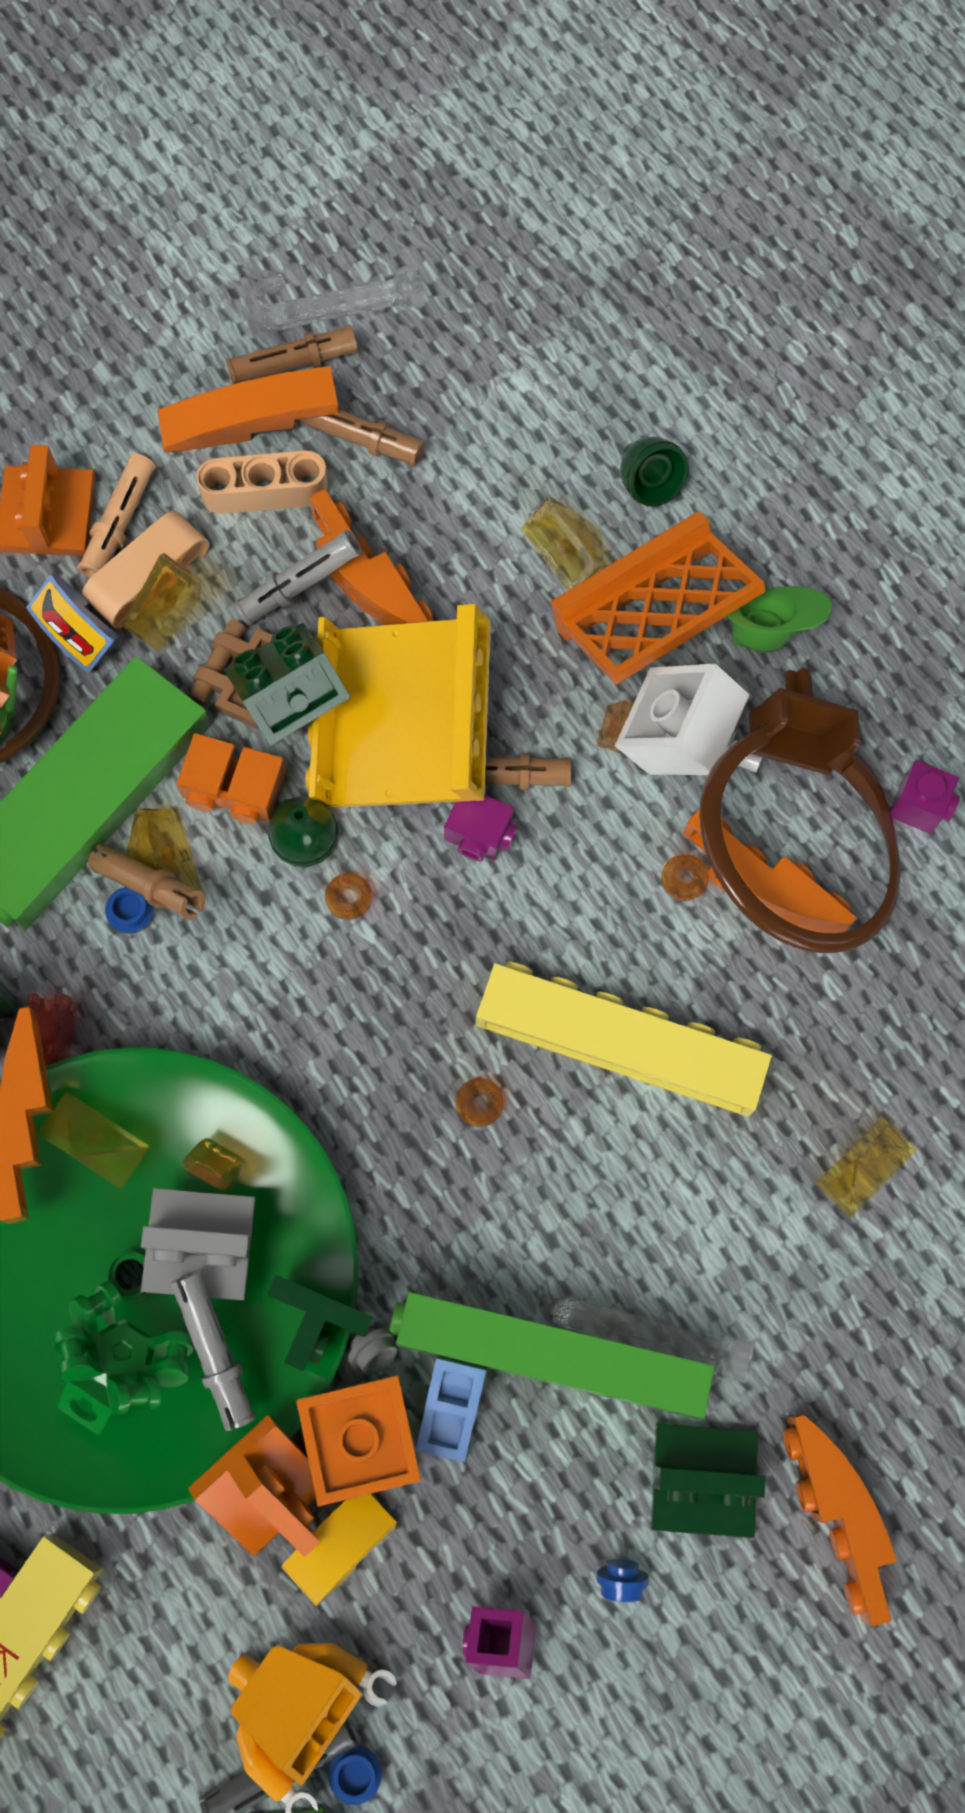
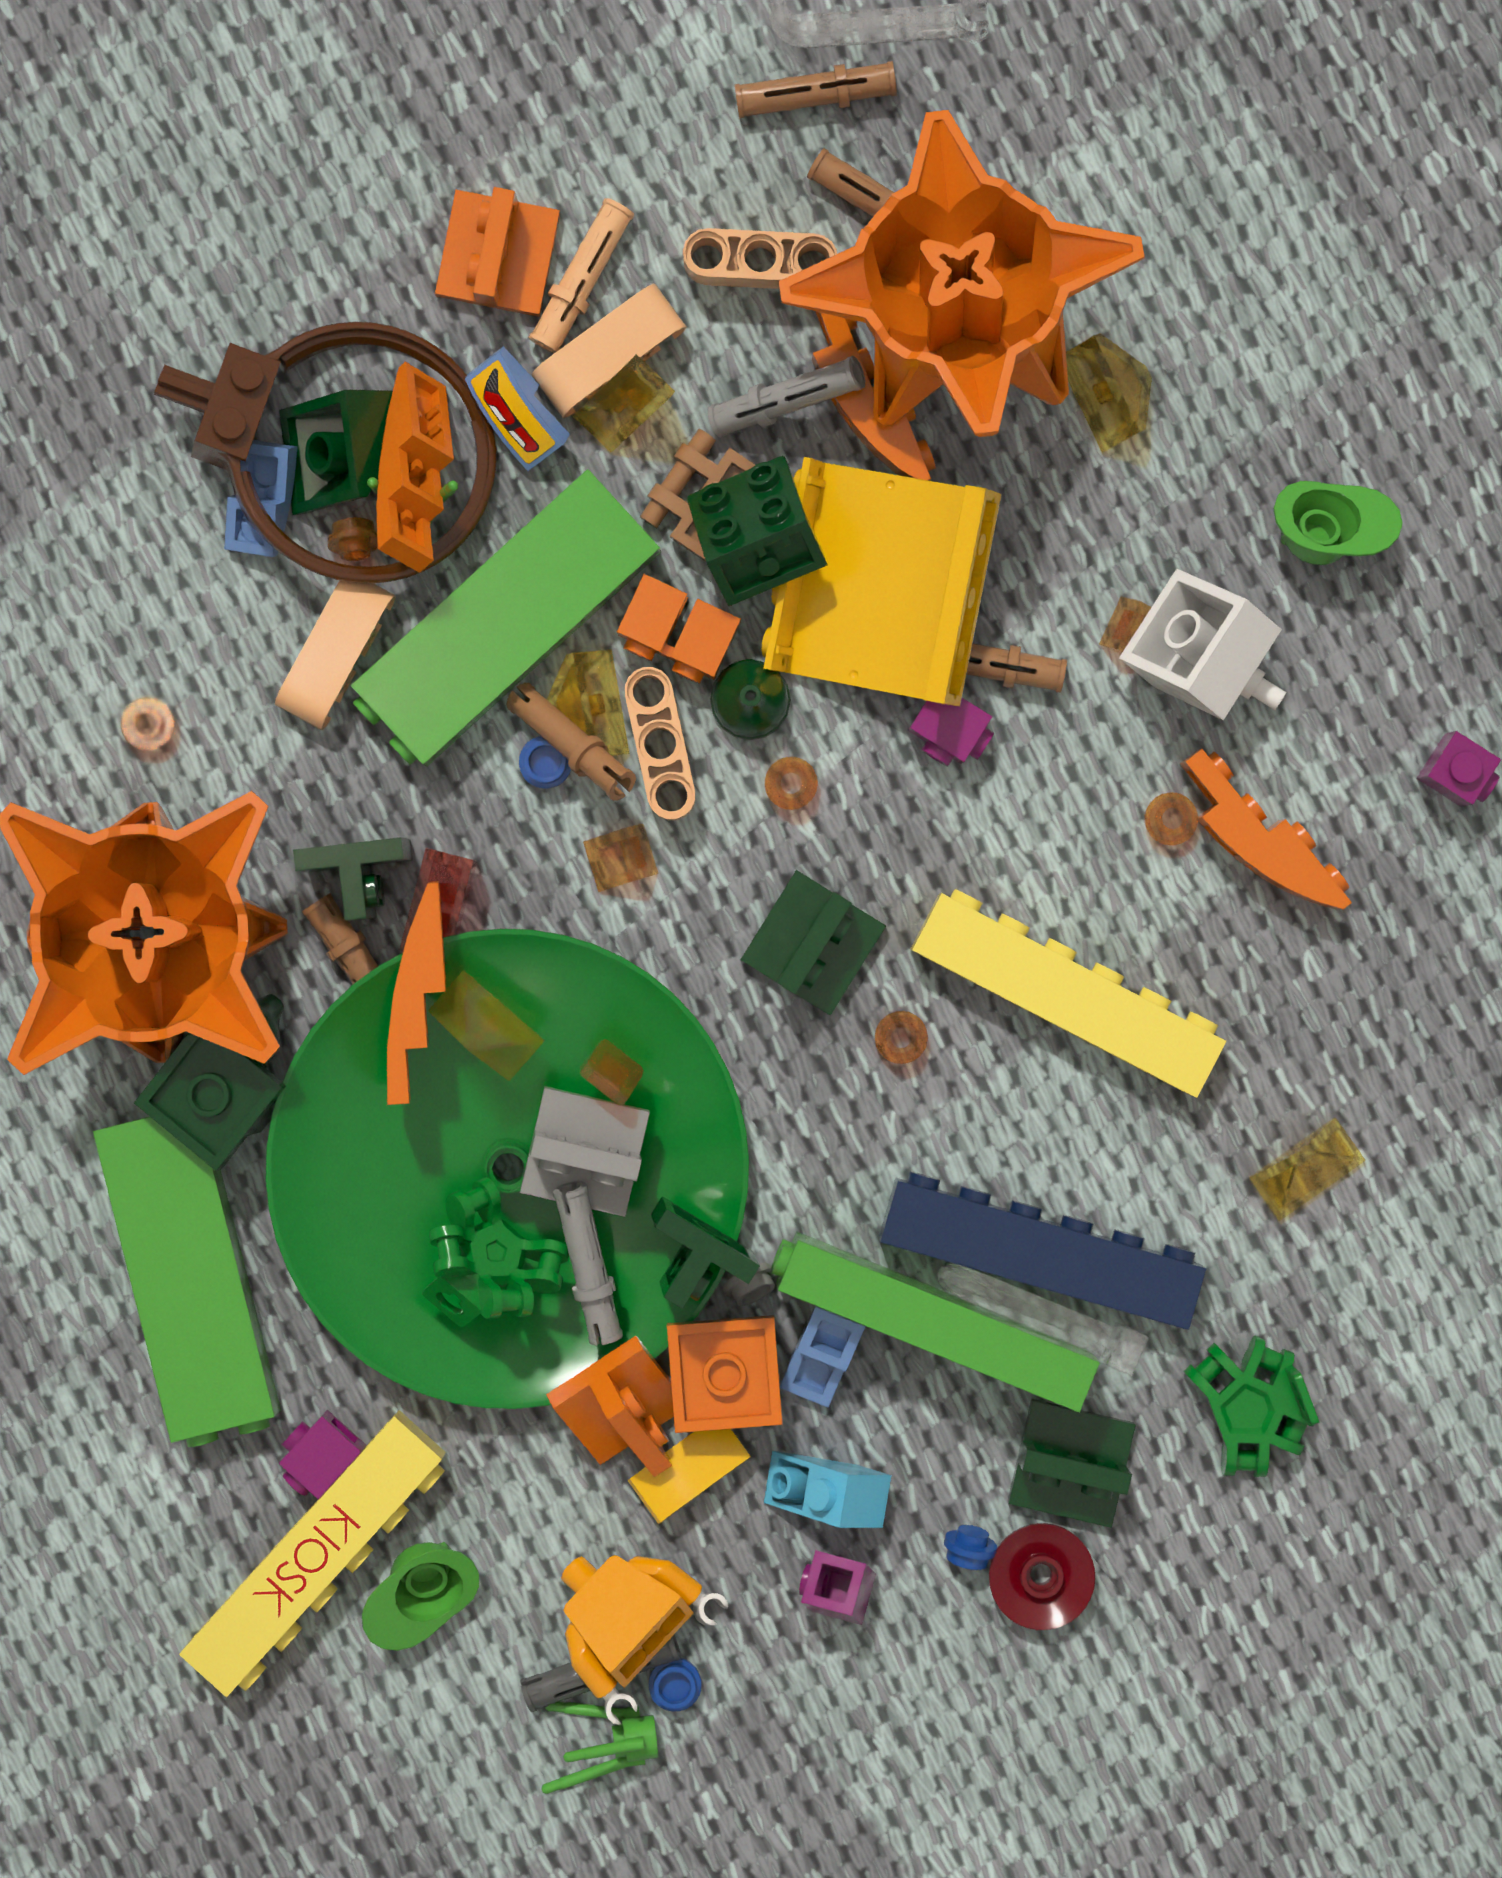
camera: 20 degrees right, 15 degrees up
(85, 1723) = (419, 1596): none -> bright green piece
(205, 982) = (620, 857): none -> clear orange slope
(216, 859) = (659, 717): none -> light nougat beam
(246, 408) = (753, 160): orange slope -> none
(388, 1030) = (813, 942): none -> dark green bracket
(429, 455) = (962, 285): none -> orange piece
(476, 1545) = (828, 1490): none -> medium azure slope
(636, 579) = (1187, 444): orange fence -> none
(642, 1278) = (1042, 1252): none -> dark blue brick
(653, 470) = (1225, 313): dark green helmet -> none
(725, 1603) = (1046, 1603): none -> dark red dish
(815, 737) = (1332, 676): reddish brown brick -> none
(837, 1493) = (1204, 1499): orange slope -> none
(865, 1396) = (1252, 1409): none -> green piece

